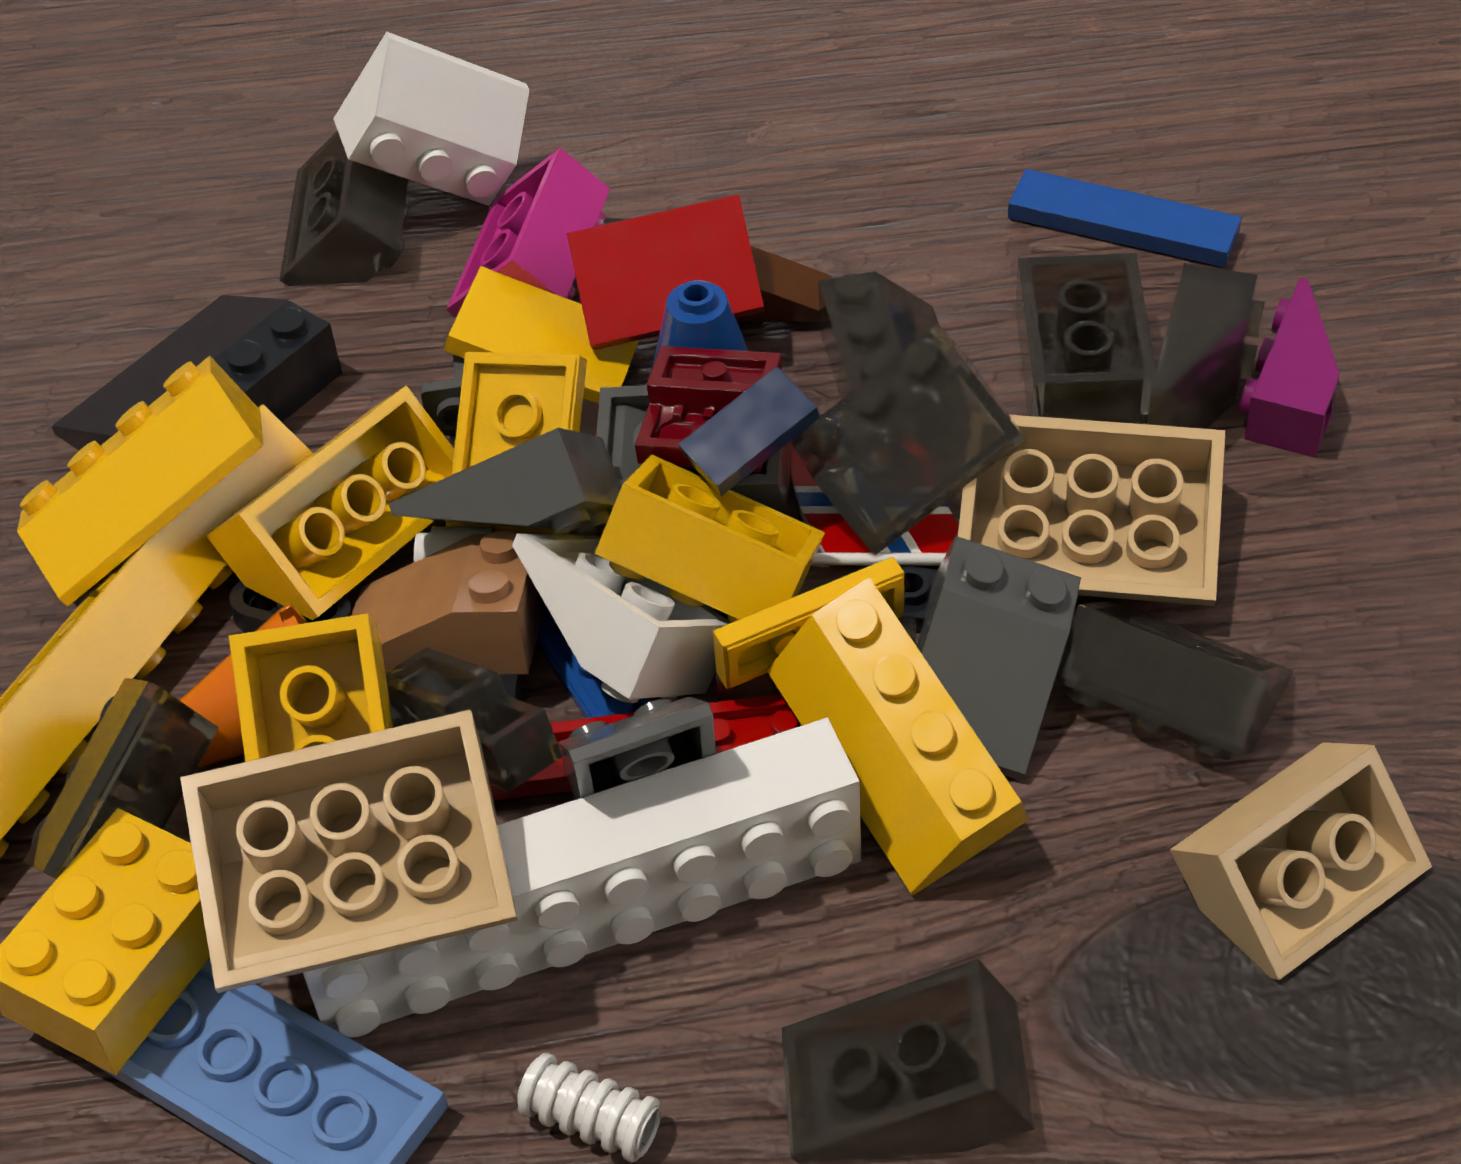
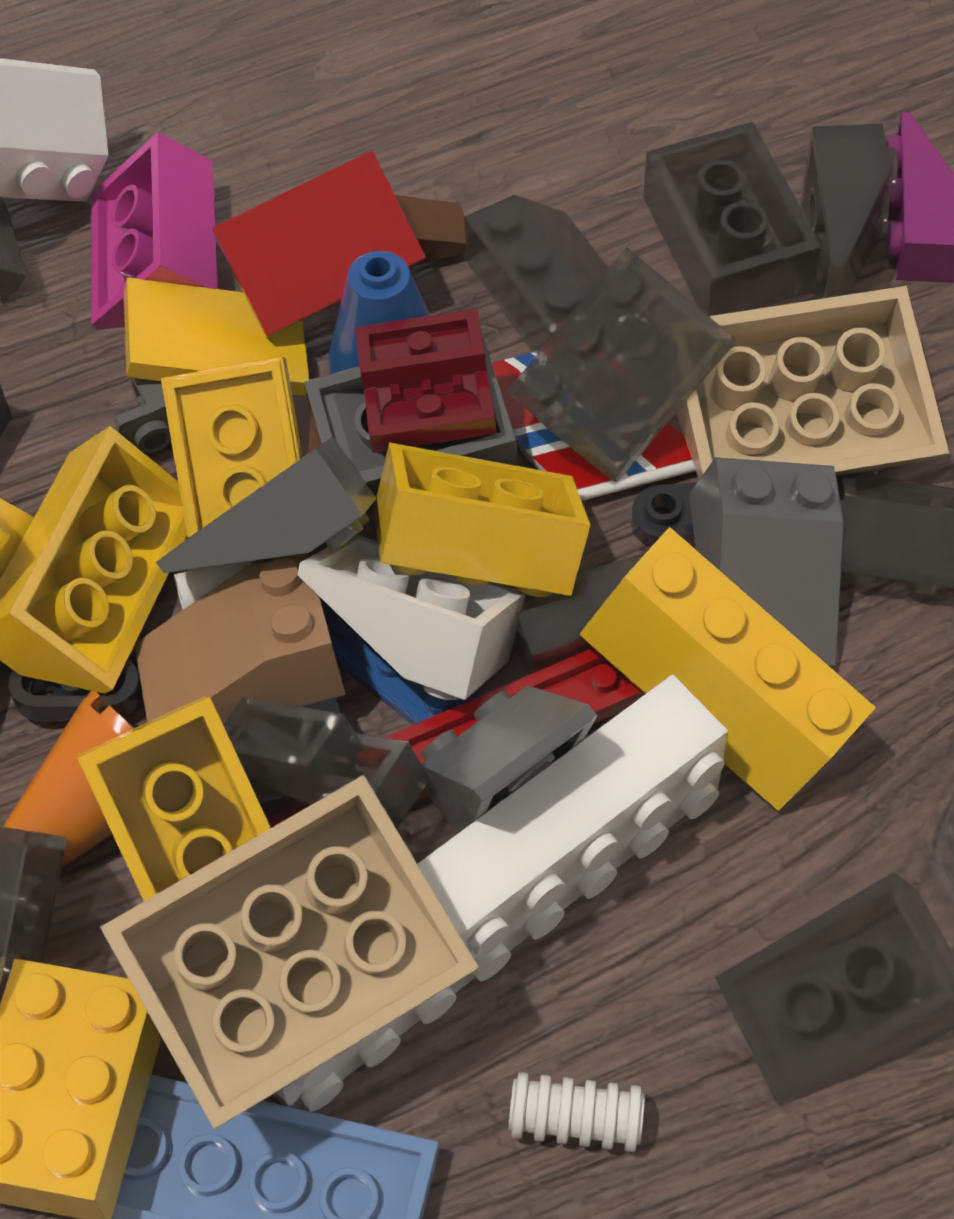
camera: 20 degrees left, 10 degrees up
(749, 430) = (482, 398): dark blue tile -> none
(754, 642) = (581, 596): yellow tile -> none
(1125, 217) = (707, 80): blue tile -> none

